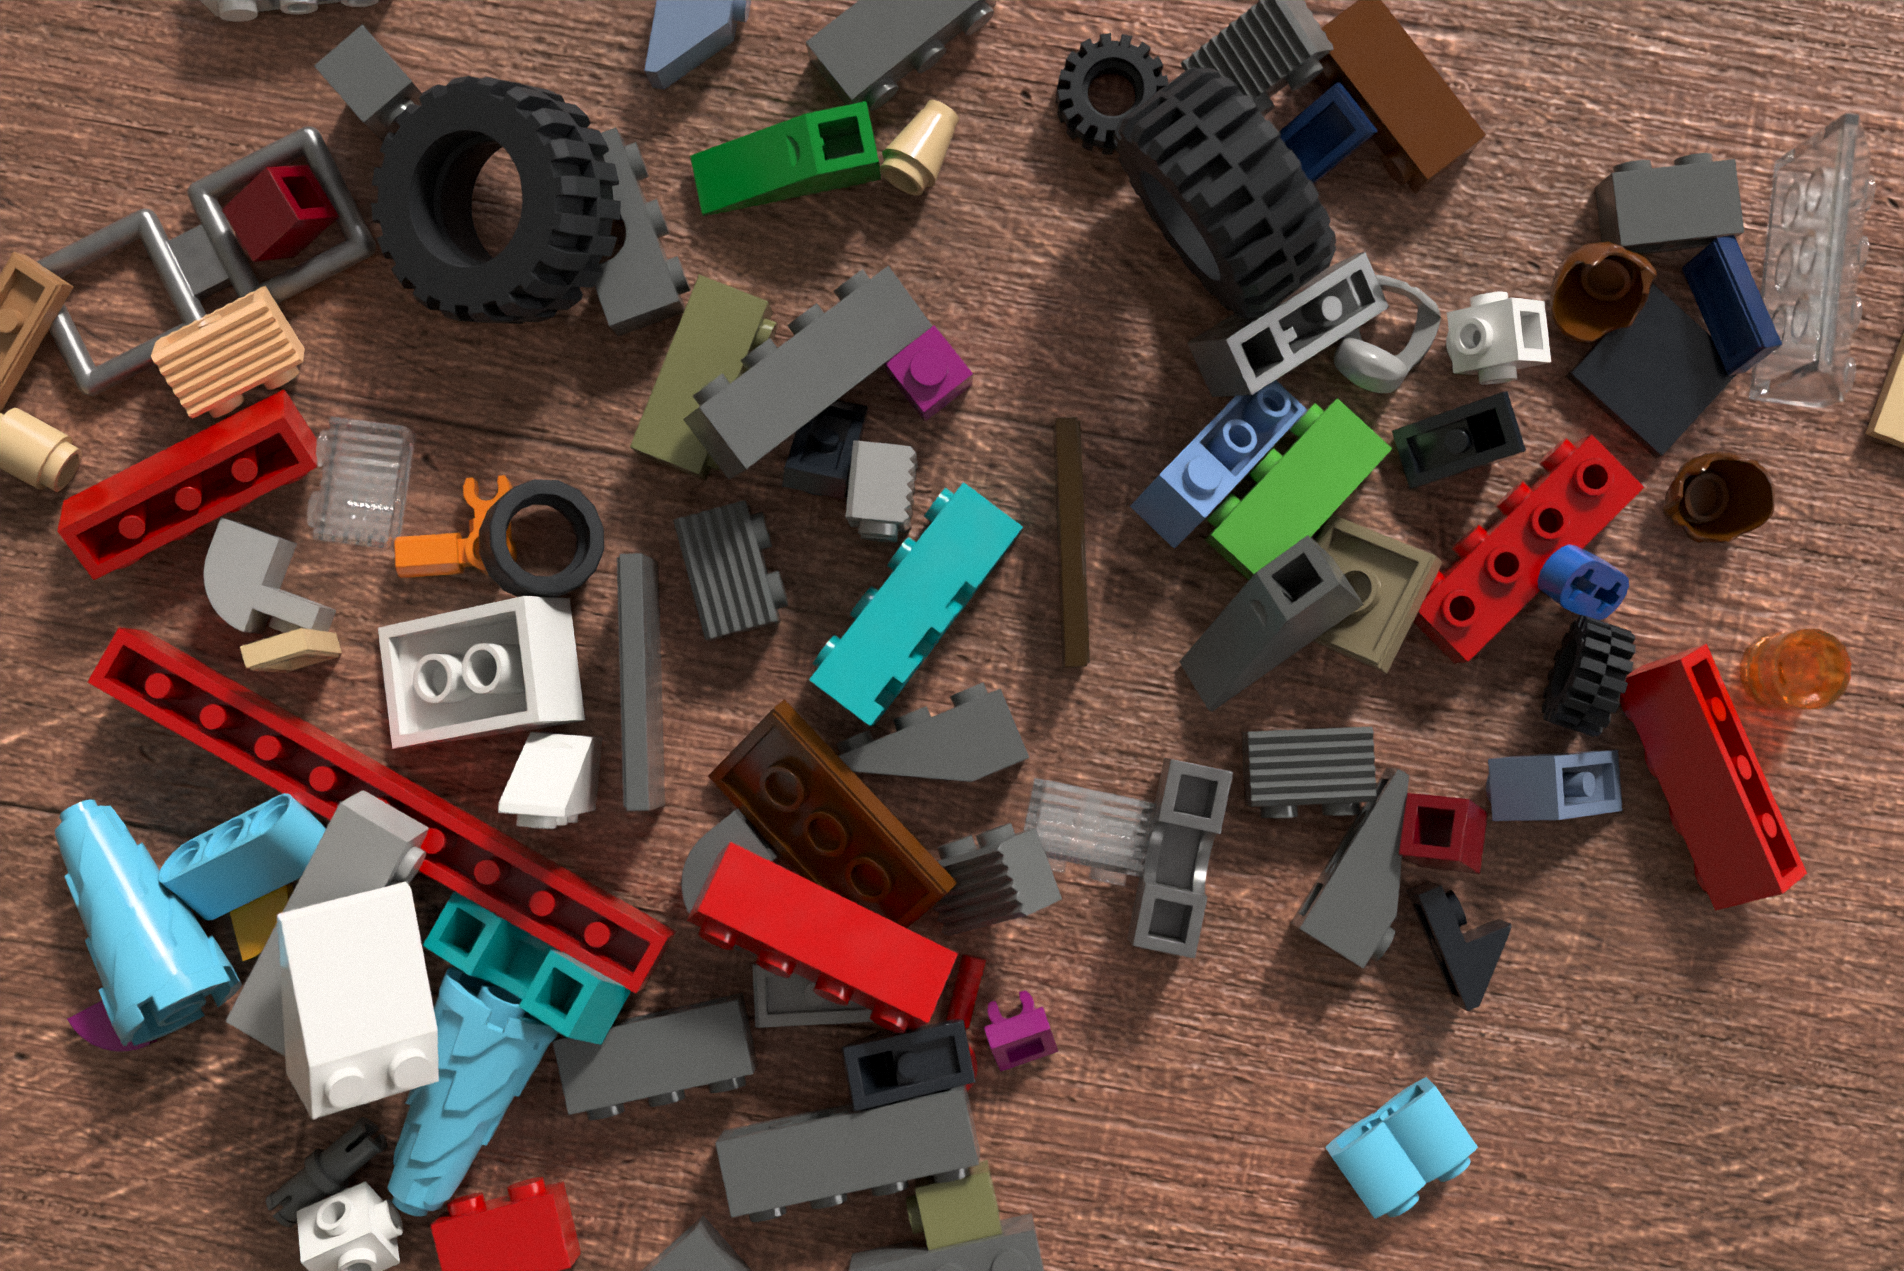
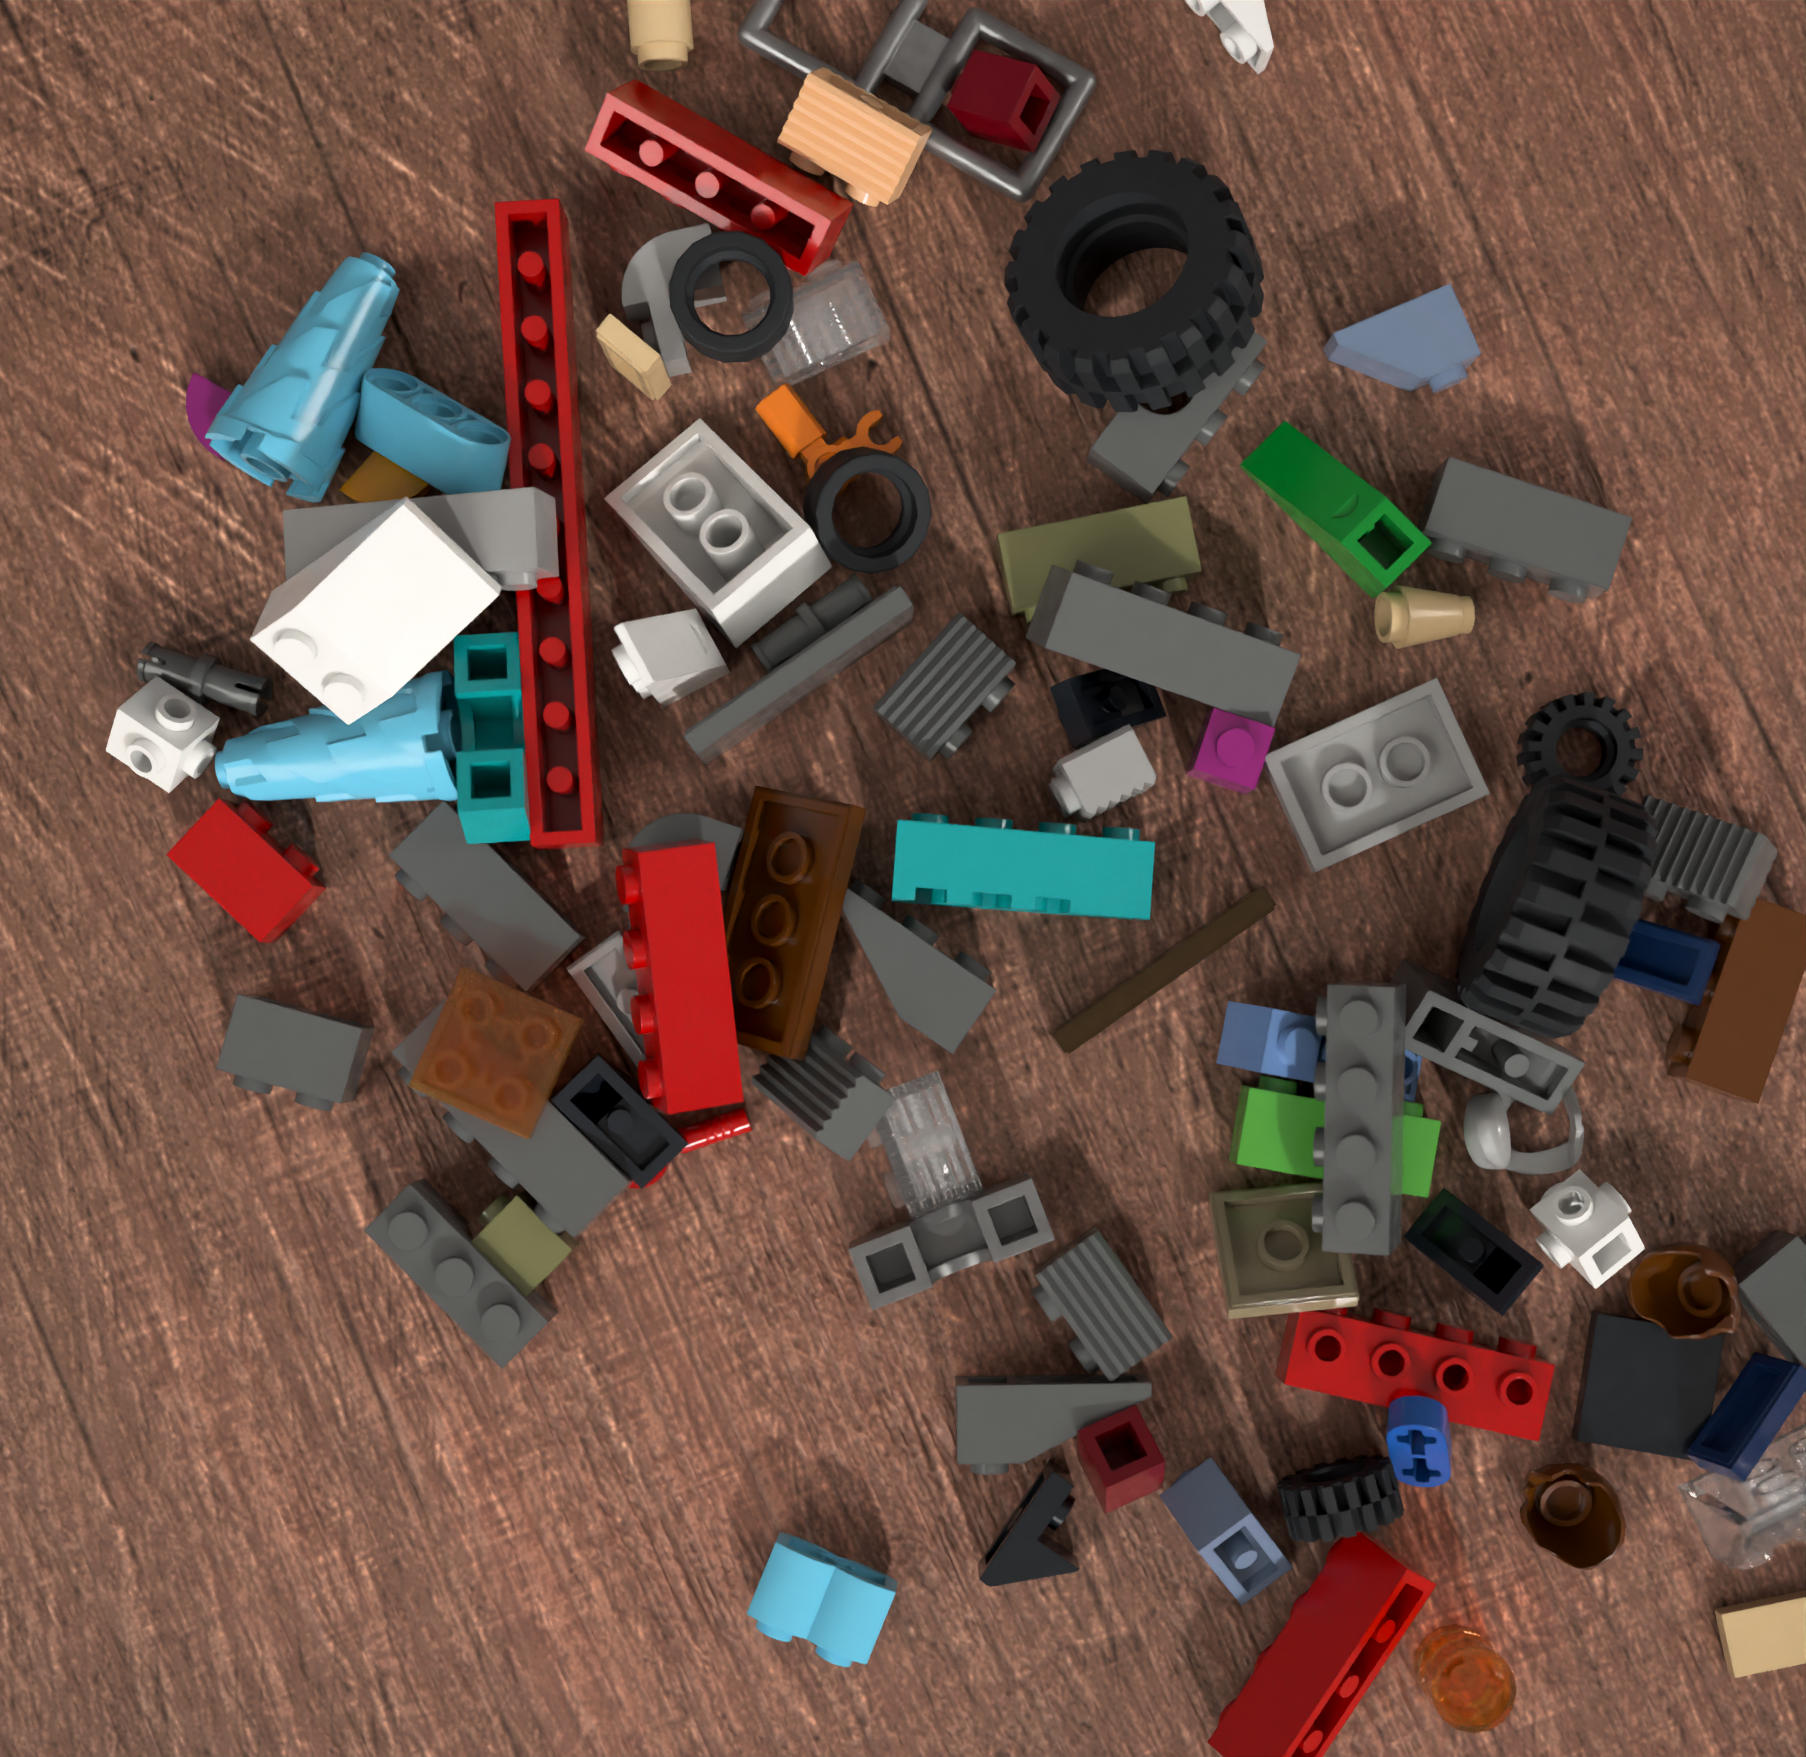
camera: 55 degrees right, 0 degrees up
(244, 533) = (725, 247): none -> black tyre
(369, 81) = (1168, 105): dark grey brick -> none
(603, 644) = (811, 623): none -> dark grey pin
(787, 1131) = (496, 1052): none -> clear orange tile
(1019, 1037) = (705, 1203): magenta tile -> none
(1024, 270) = (1374, 775): none -> light grey plate
(1269, 621) = (1207, 1188): dark grey slope -> none
(1293, 458) = (1362, 1116): none -> dark grey brick

